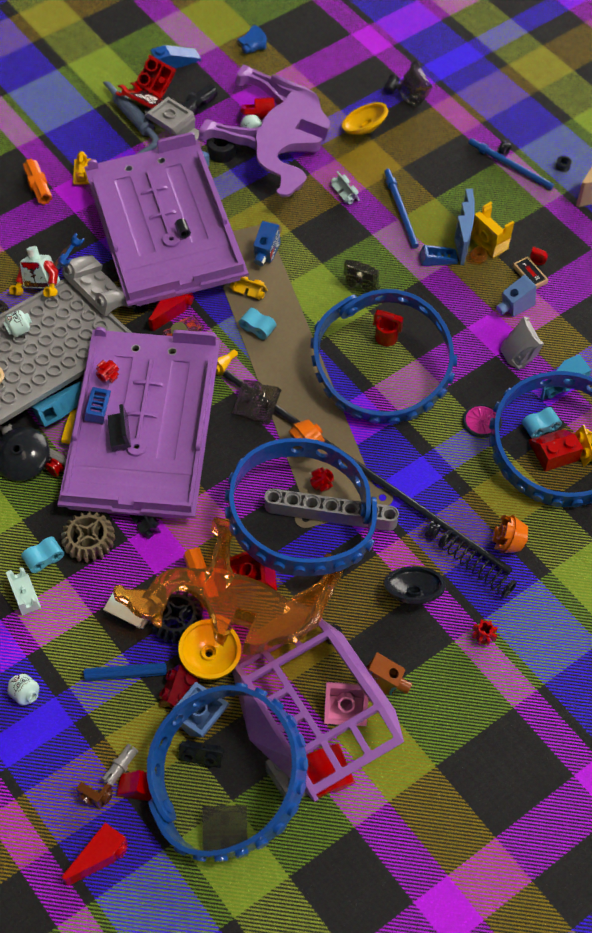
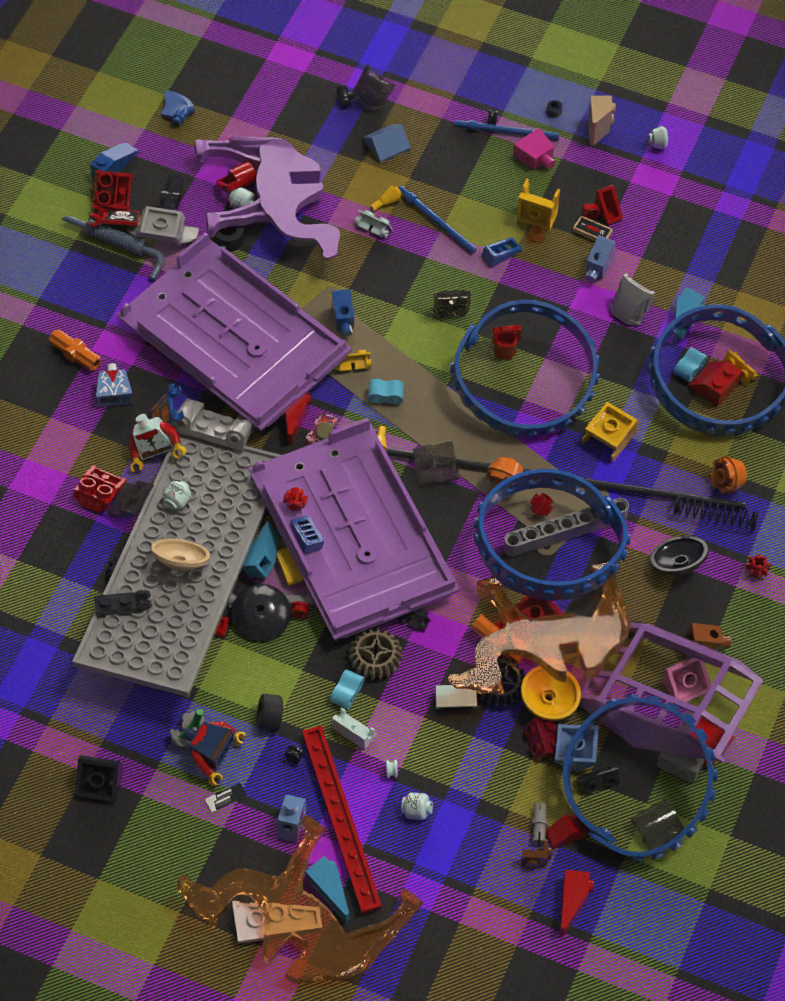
camera: 30 degrees left, 0 degrees up
(27, 644) = (391, 768): none -> light aqua bush
(43, 222) = (113, 387): none -> medium blue torso
(79, 171) = (108, 318): yellow hinge -> none
(119, 430) = (344, 545): black panel -> none
(125, 671) = (488, 748): blue axle -> none
(182, 228) = (262, 332): black hinge -> none
(365, 118) = (347, 144): yellow dish -> none
(373, 173) = (391, 195): none -> yellow cone
(403, 133) = (388, 142): none -> medium blue slope
(429, 444) = (612, 428): none -> yellow piece
(433, 530) = (662, 502): black bush -> none
(465, 225) = (511, 211): medium blue slope -> none
(477, 420) = (636, 387): dark pink wheel -> none
(522, 188) = (535, 150): none -> dark pink torso
(557, 257) = (608, 204): none -> red slope

